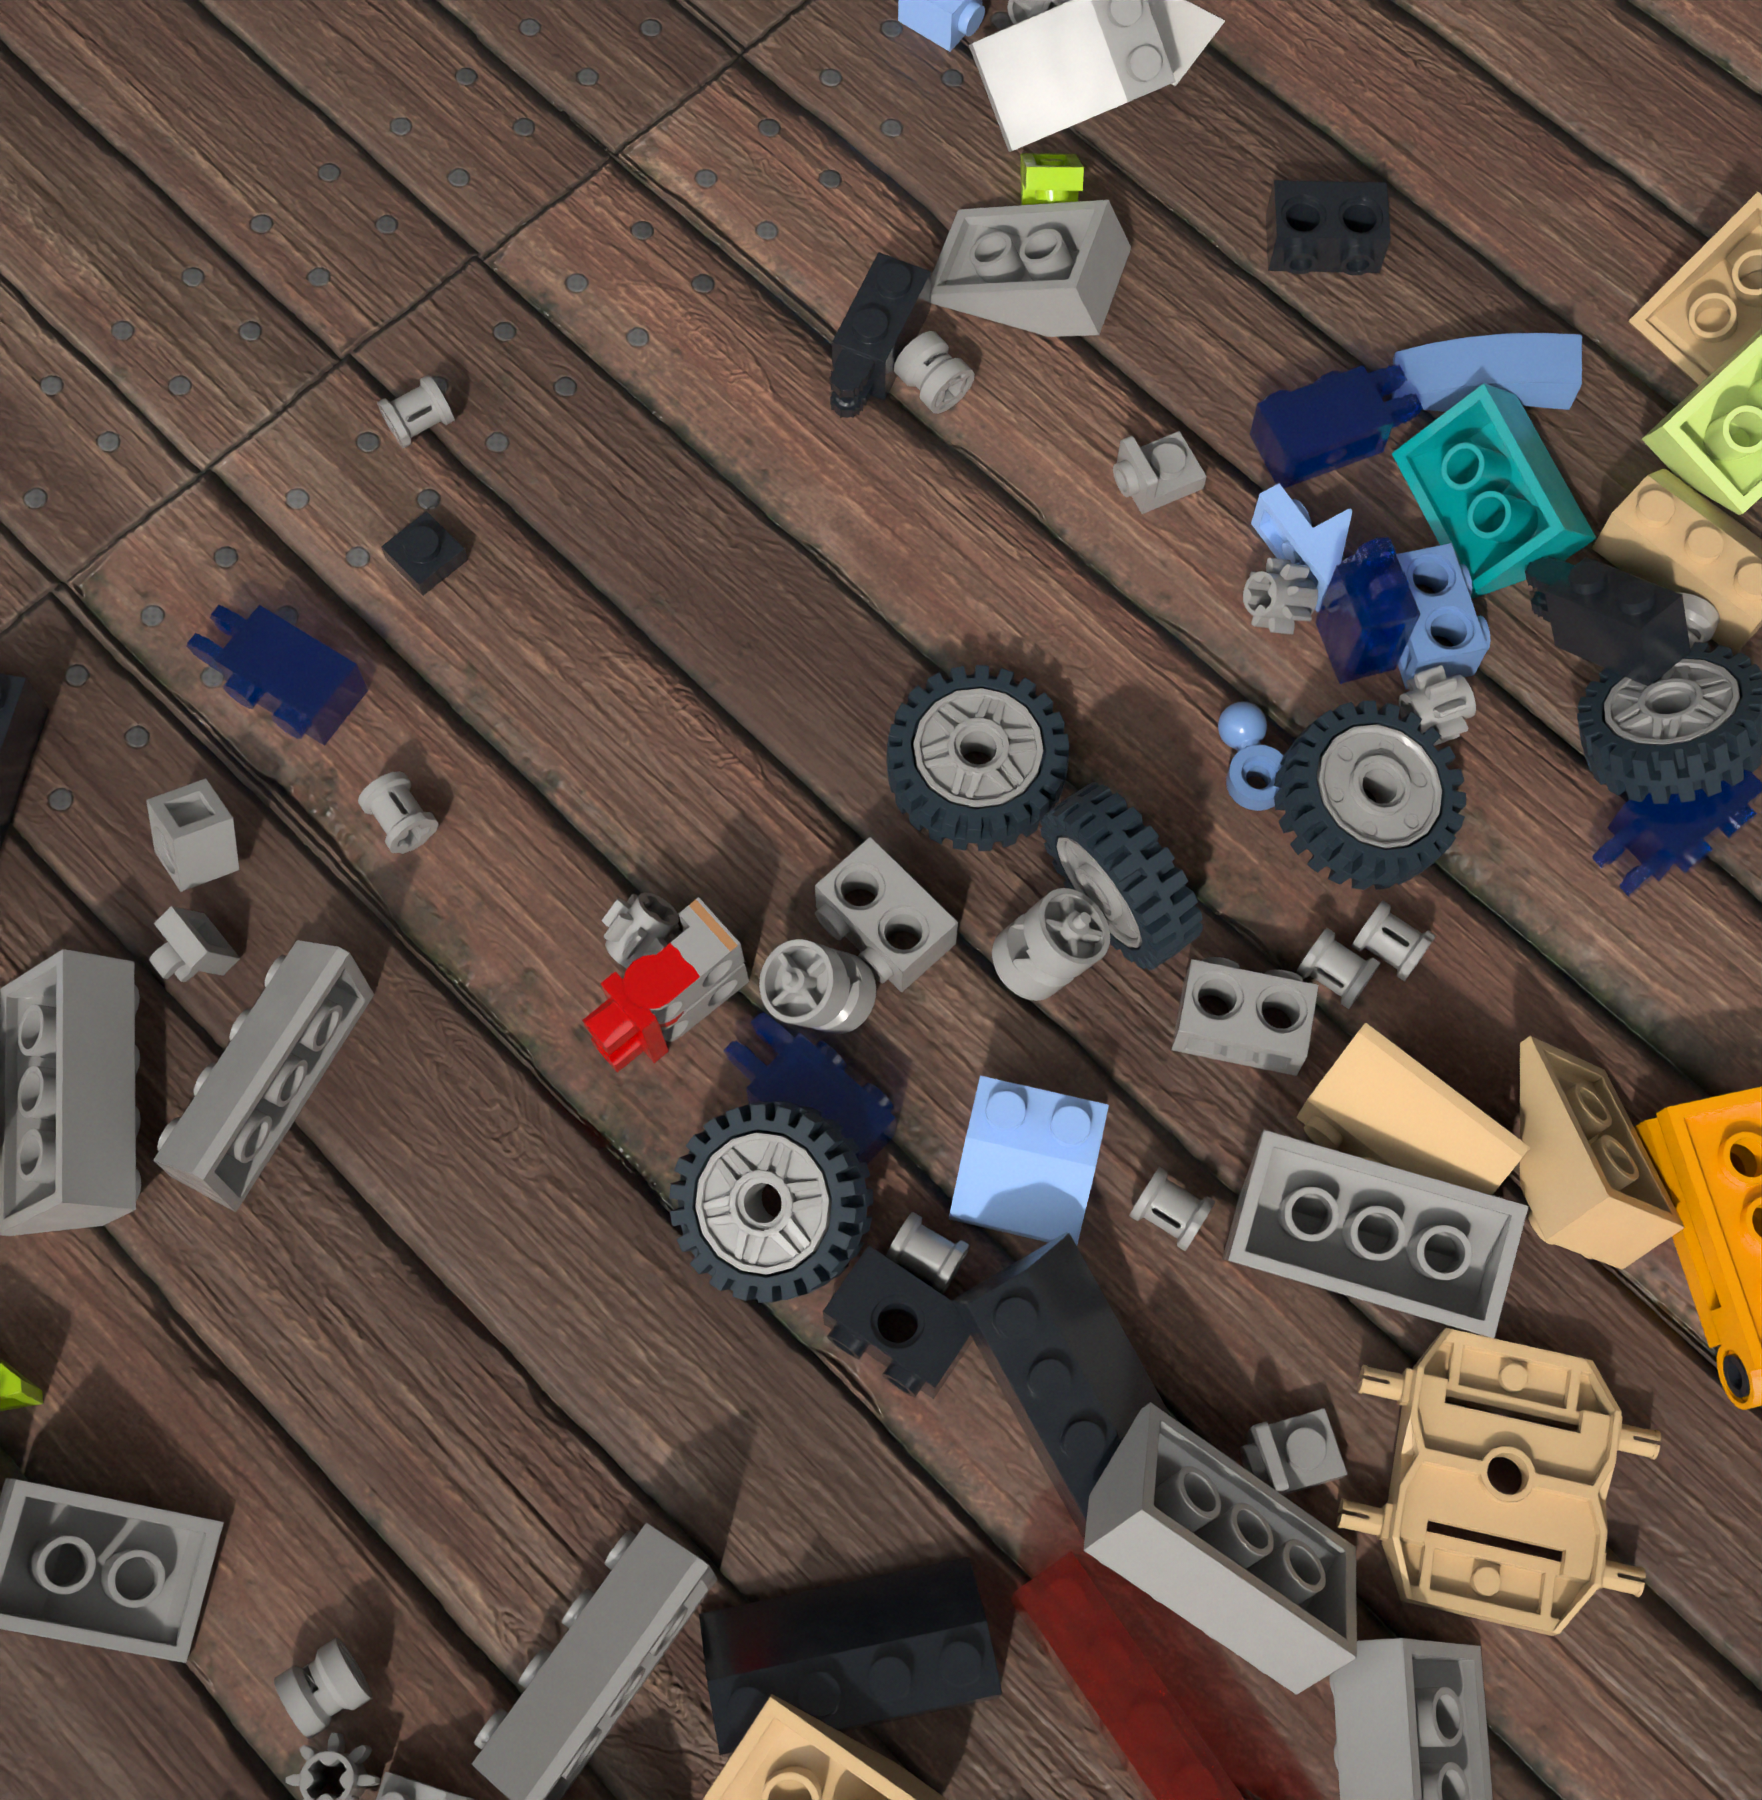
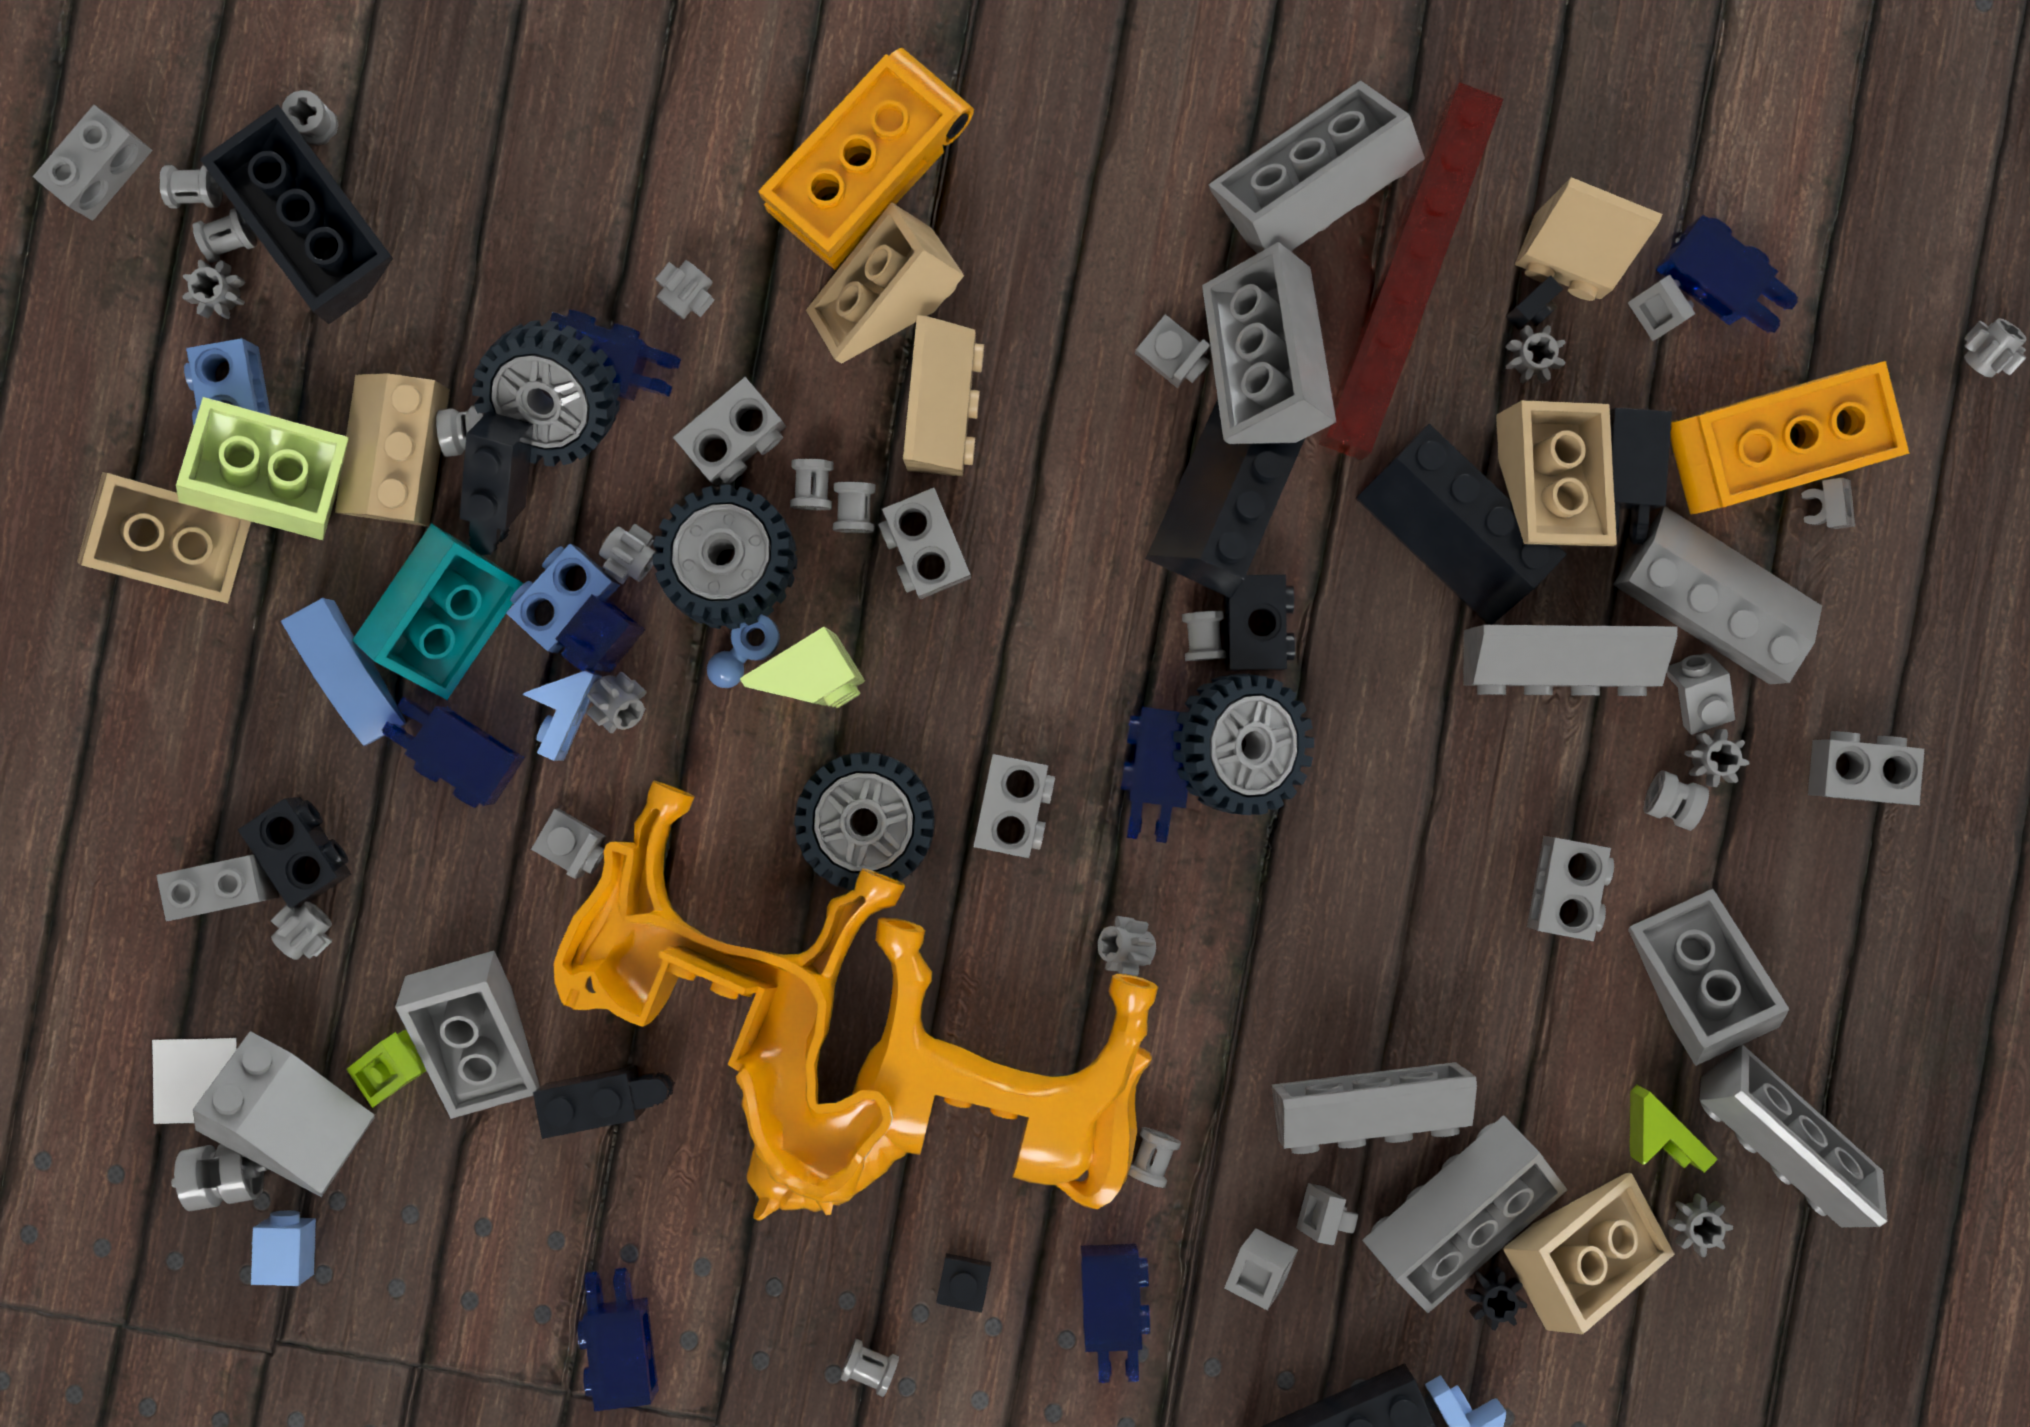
camera: 125 degrees left, 20 degrees up
(333, 1466) = (1556, 886): none -> light grey brick
(509, 732) = (1070, 1120): none -> light orange animal
(624, 212) = (617, 1346): none -> clear blue hinge
(668, 990) = (1162, 898): hips -> none
(817, 987) = (1092, 810): light grey wheel -> none
(934, 372) = (599, 1042): light grey wheel -> none
(992, 460) = (640, 947): none -> light orange animal
(1028, 1161) = (1108, 613): light blue slope -> none
(1051, 944) = (966, 688): light grey wheel -> none
(1125, 872) = (899, 670): black wheel -> none
(1172, 1208) = (1077, 511): light grey bush -> none
(1186, 775) = (810, 671): none -> yellowish green slope
(1242, 185) = (301, 931): none -> light grey gear
(1343, 130) = (214, 887): none -> light grey brick
(1376, 1233) = (1024, 378): light grey slope -> none
(1444, 1480) = (1113, 263): tan piece -> none
(1524, 894) = (723, 423): none -> light grey brick
(1709, 946) = (684, 289): none -> light grey gear

